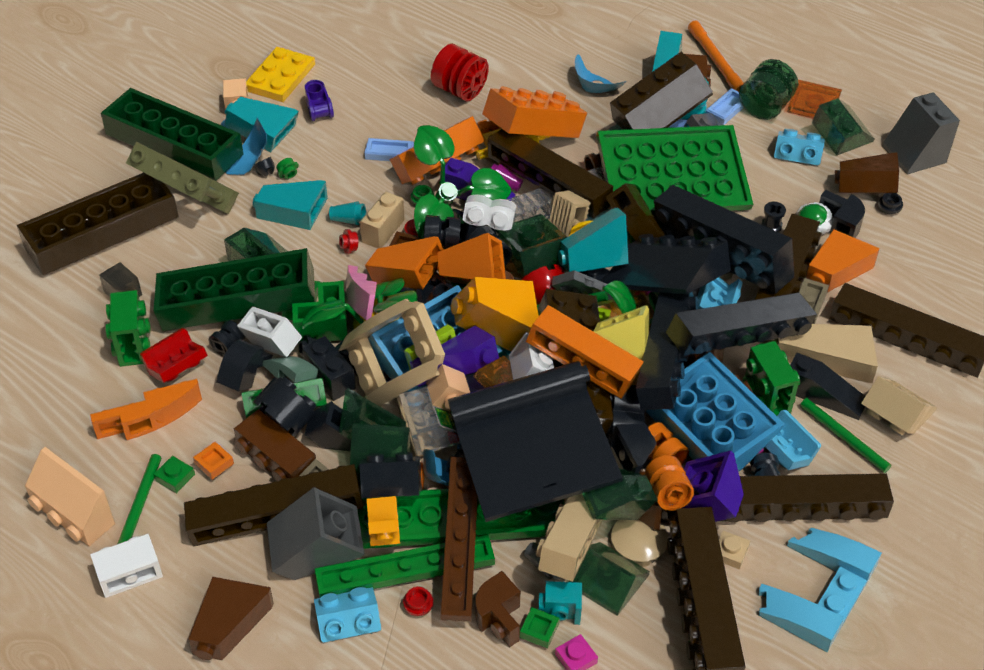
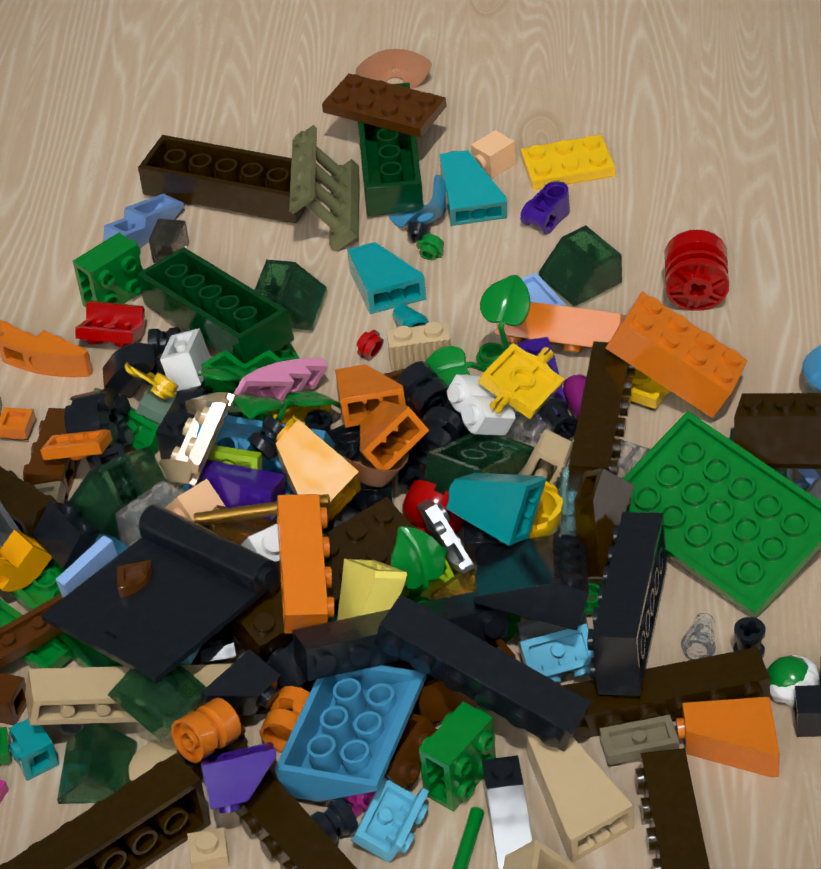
camera: 60 degrees right, 5 degrees down
(80, 290) = (141, 218): none -> medium blue slope
(88, 87) = (406, 64): none -> nougat piece
(141, 108) = (384, 105): none -> reddish brown plate
(292, 353) = (161, 384): none -> yellow plate
(304, 426) = (76, 445): none -> orange plate
(393, 114) = (582, 266): none -> clear green slope
(439, 311) = (271, 429): none -> black wheel
(454, 475) = (86, 565): none -> light blue tile
(496, 181) = (521, 380): none -> yellow plate
(502, 448) = (133, 577): none -> reddish brown tile
(509, 351) = (245, 512): none -> pearl gold bar
(532, 189) = (563, 417): none -> black bush

